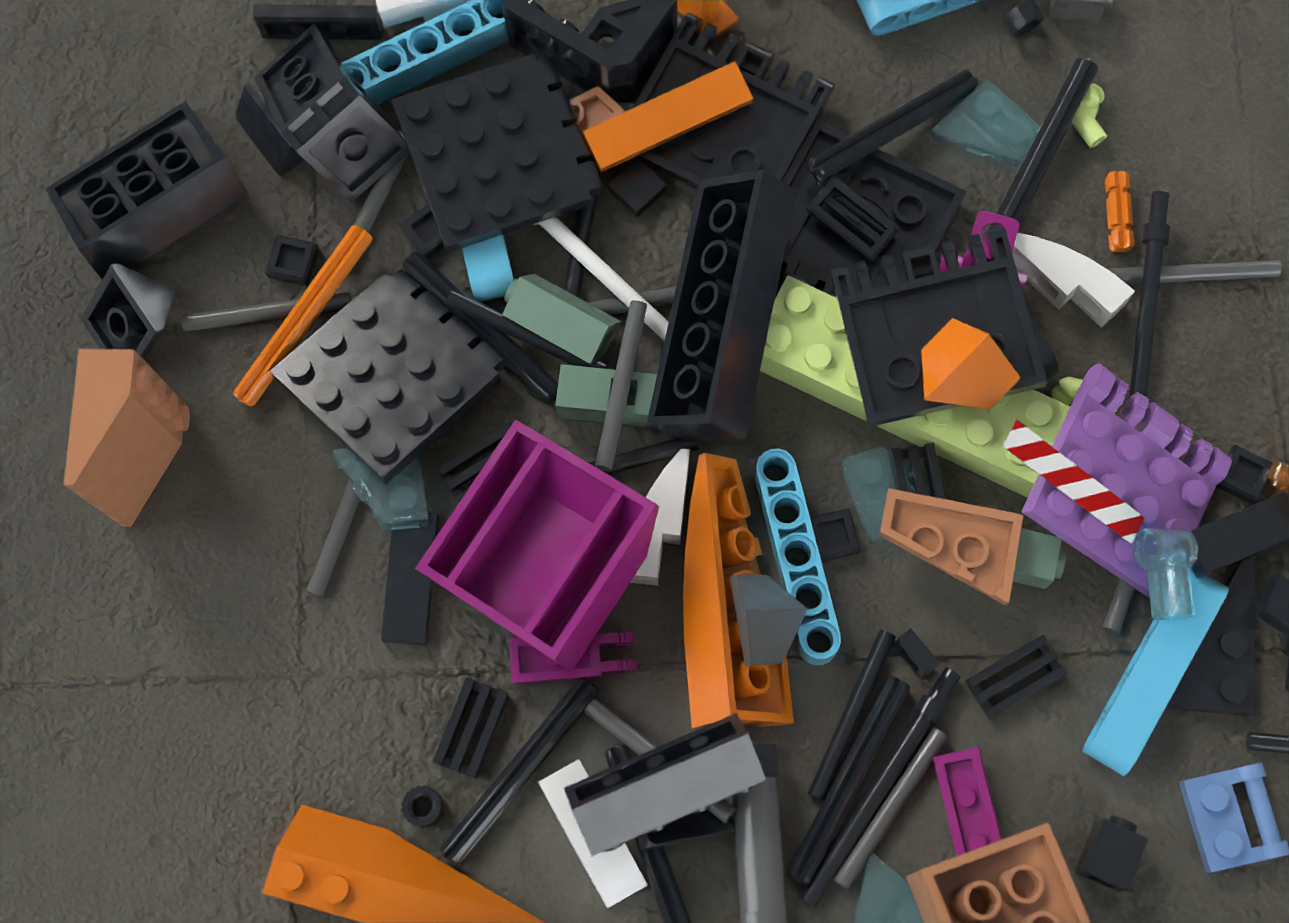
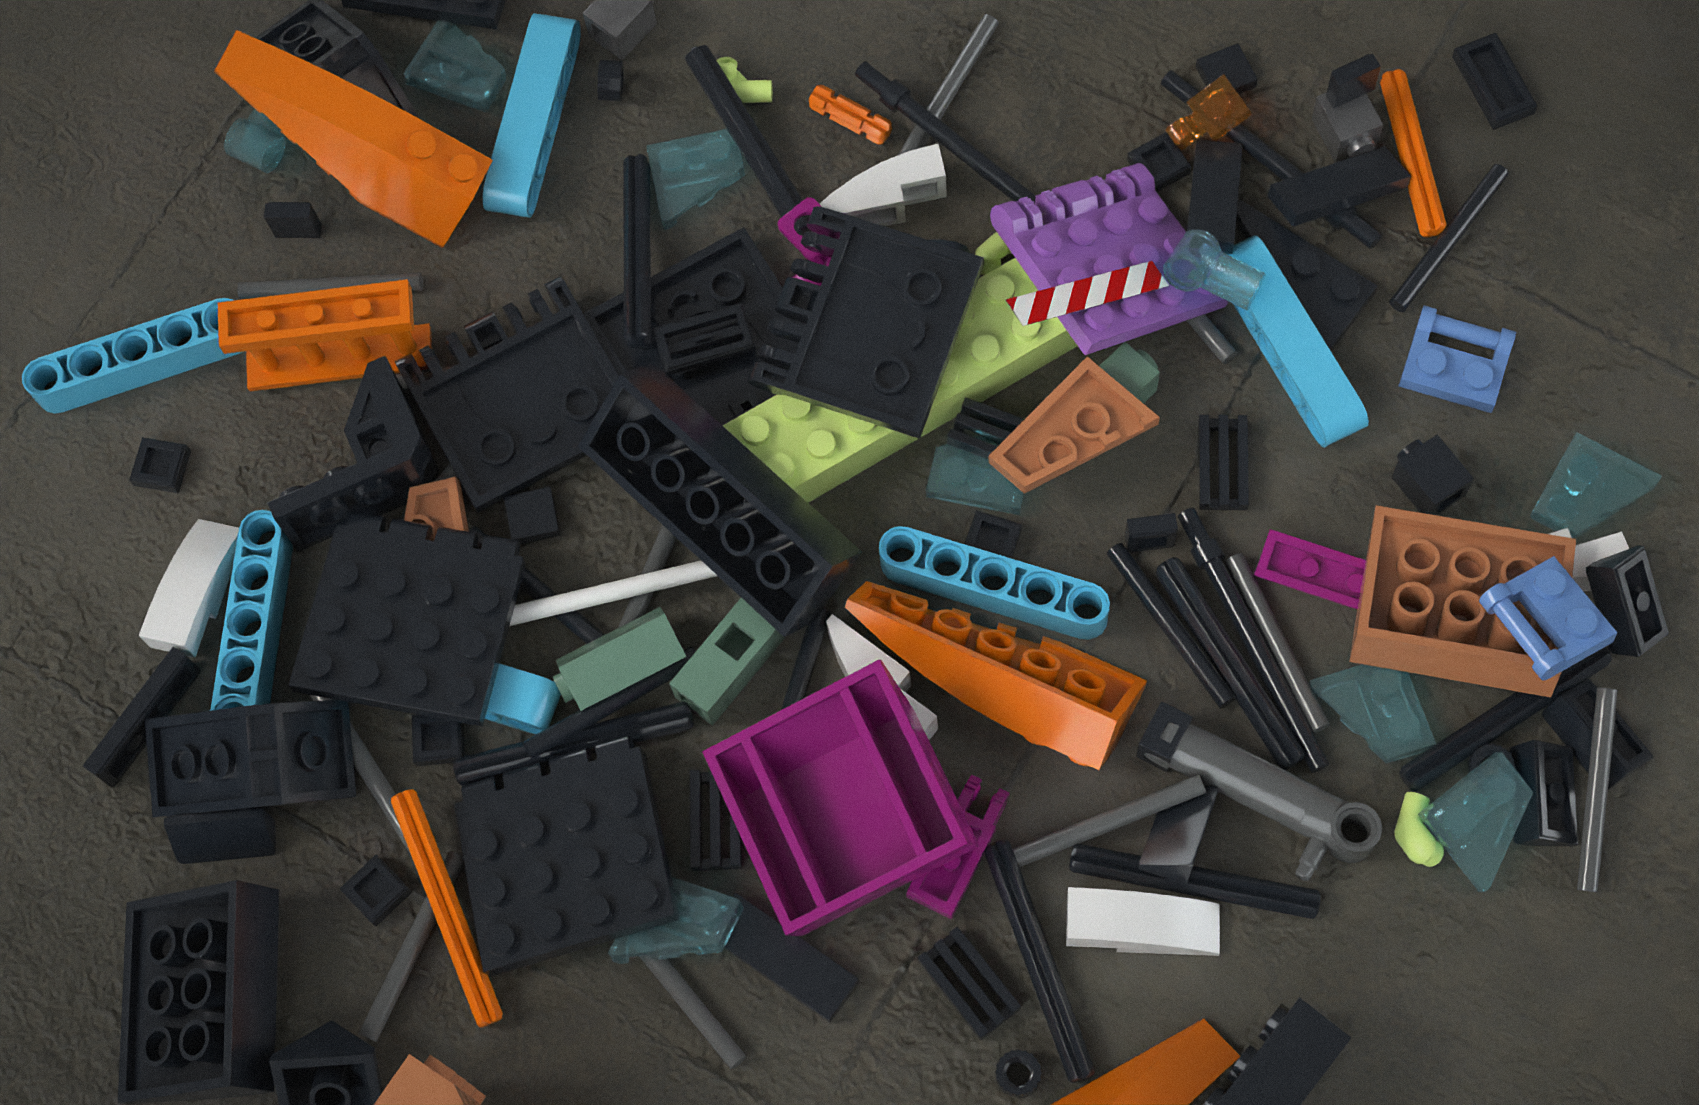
camera: 55 degrees left, 5 degrees down
(621, 386) = (728, 637): dark grey bar -> none
(664, 784) = (1143, 816): brick -> none
(668, 116) = (489, 441): orange tile -> none
(765, 618) = (1038, 639): dark grey slope -> none
(965, 368) = (925, 314): orange slope -> none

